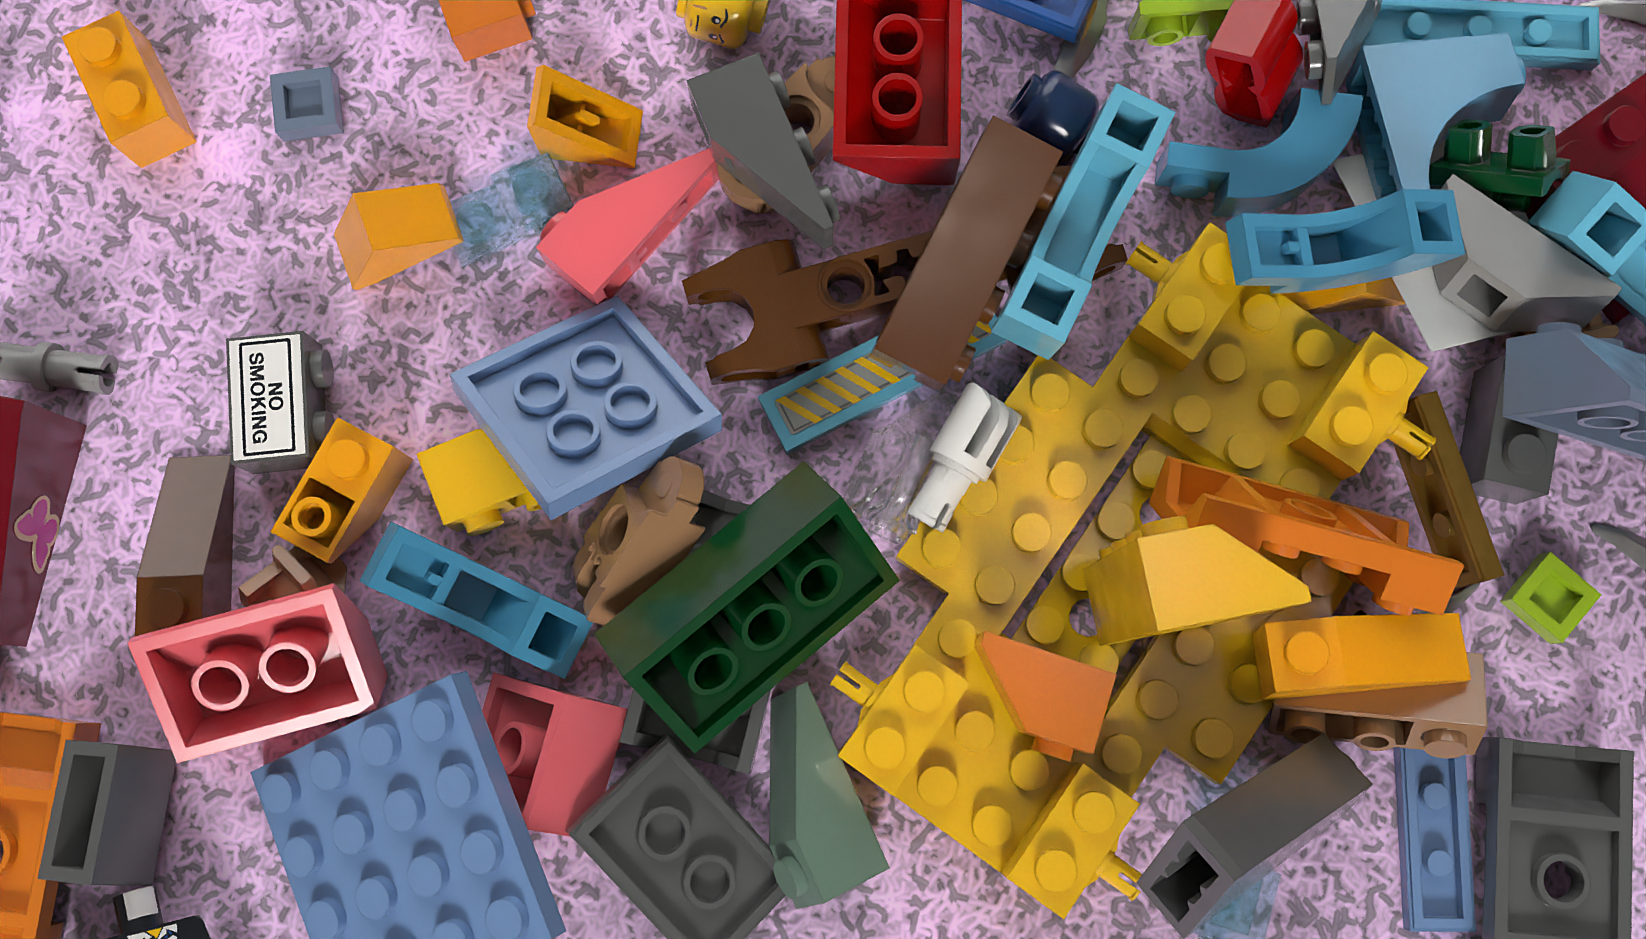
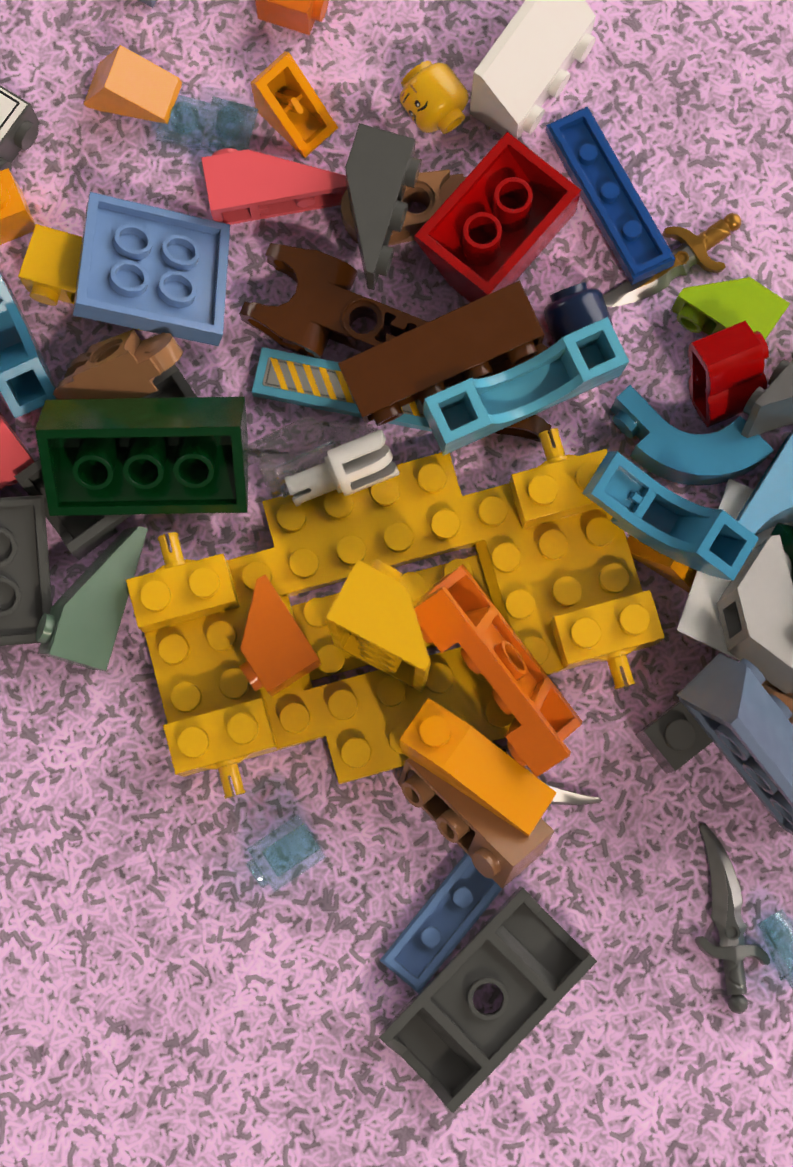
camera: 40 degrees right, 0 degrees up
(1250, 833) = (325, 812): dark grey slope -> none
(1447, 497) = (620, 726): pearl gold tile -> none
(1550, 598) = (634, 841): lime plate -> none

